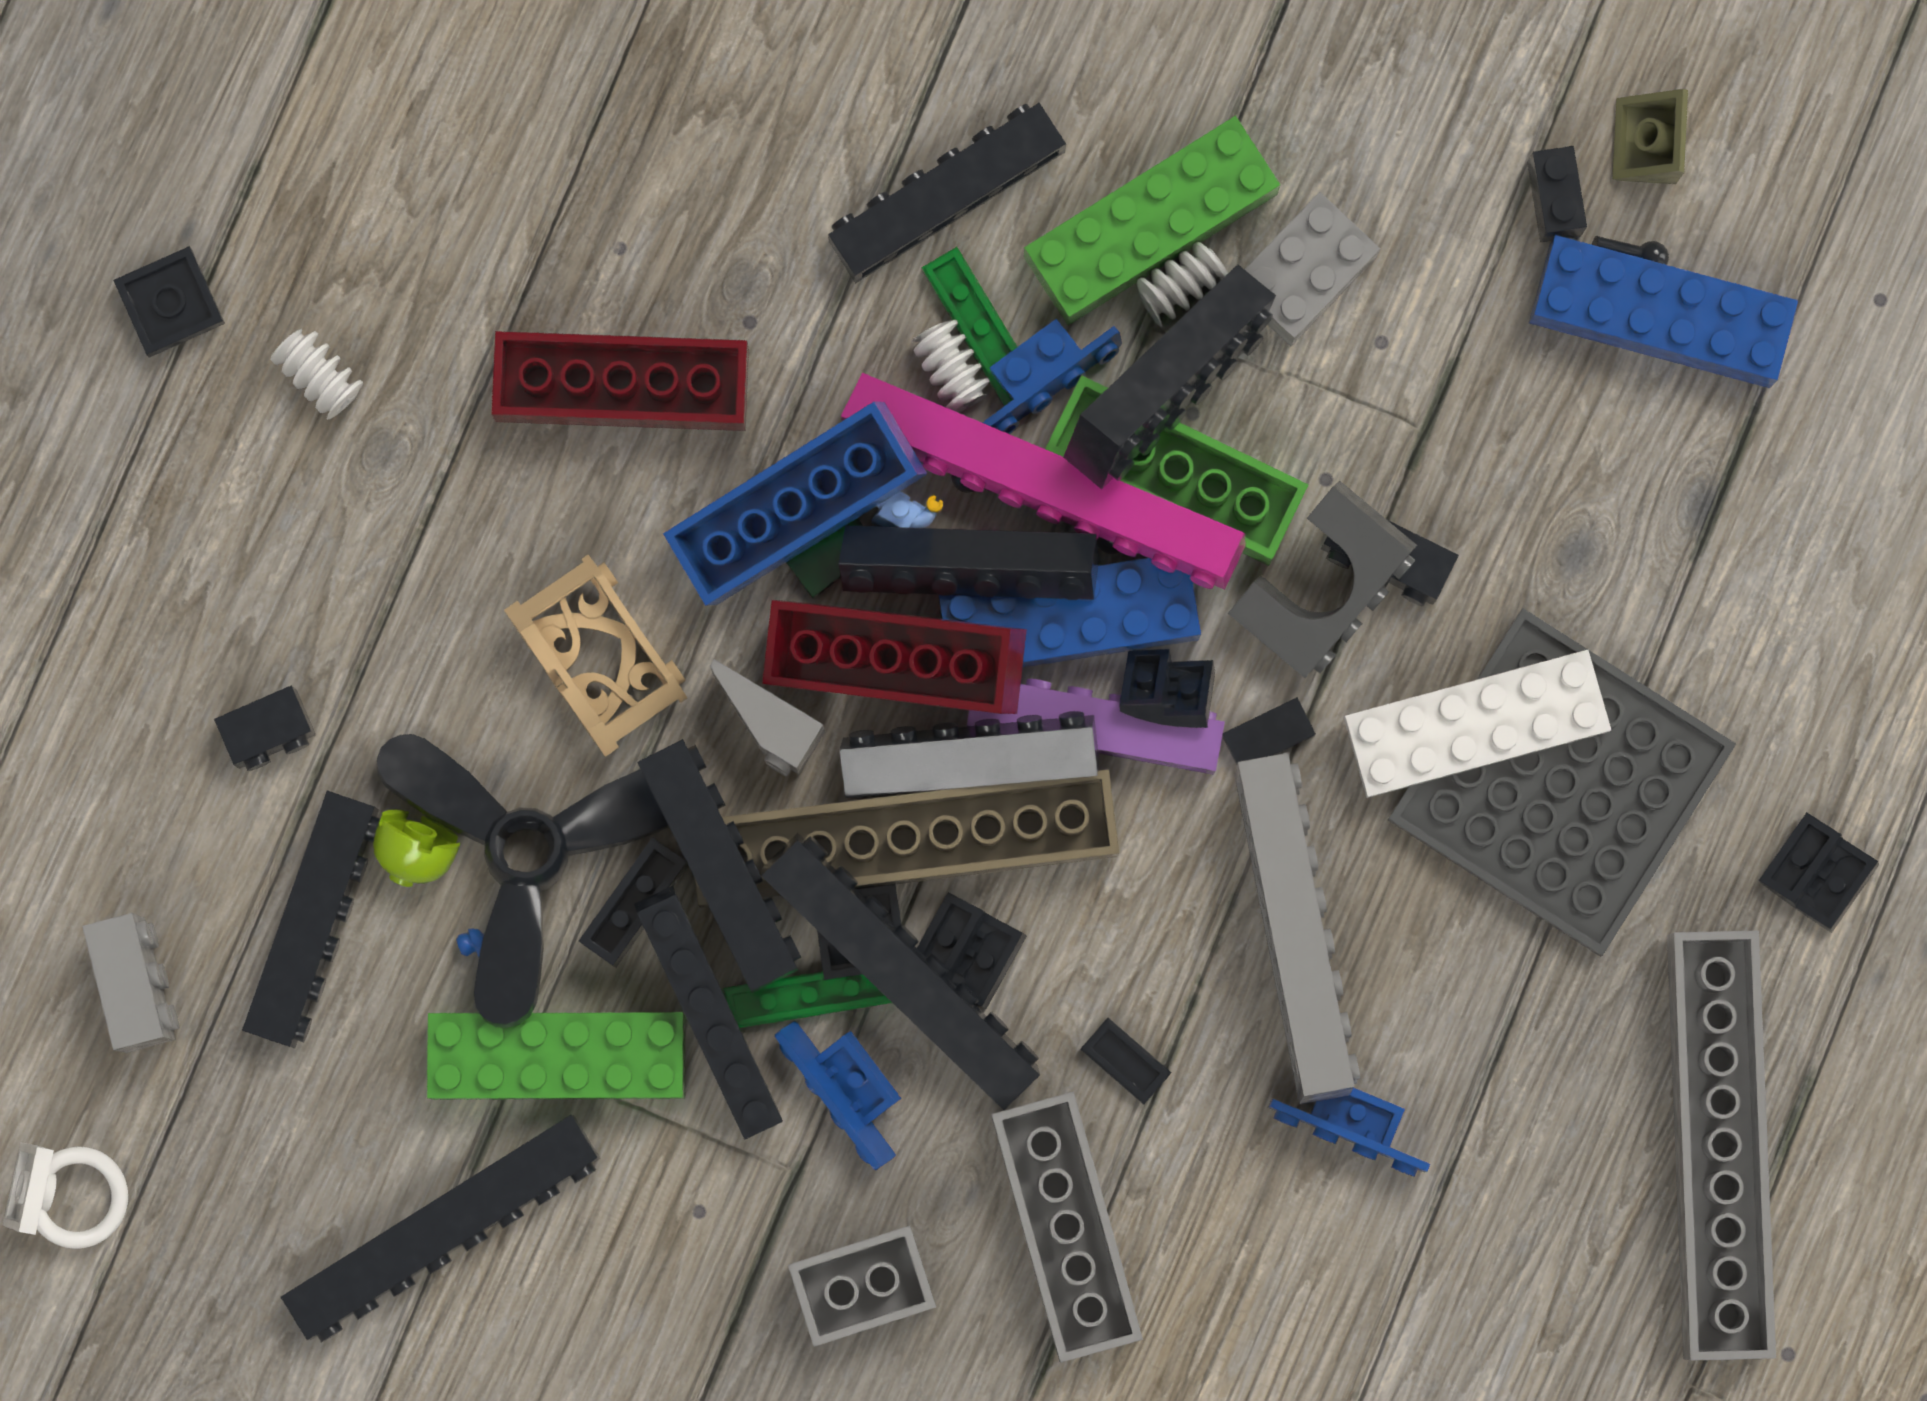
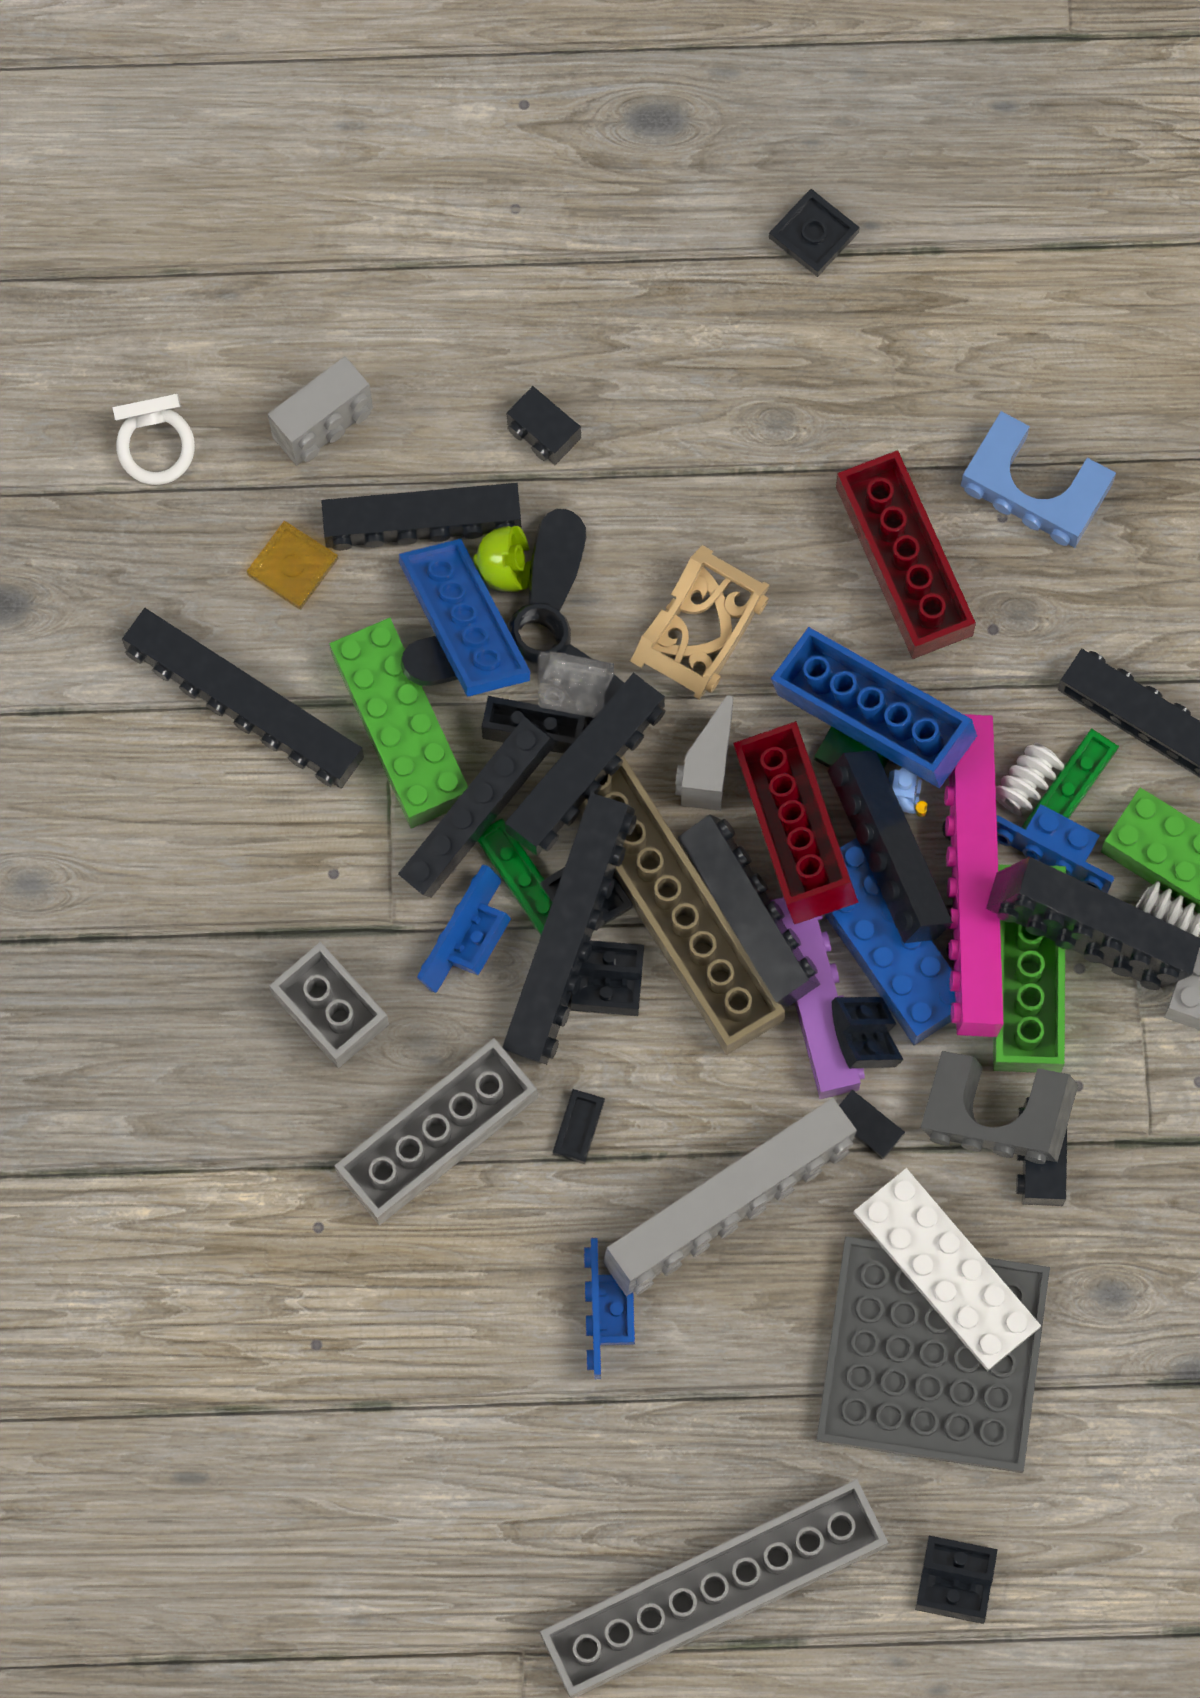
camera: 70 degrees right, 10 degrees down
(299, 1098) = (292, 565): none -> clear yellow tile
(316, 373) = (810, 349): white piece -> none
(471, 927) = (464, 617): none -> blue plate
(570, 238) = (1062, 516): none -> medium blue arch
(611, 836) = (572, 683): none -> clear bracket

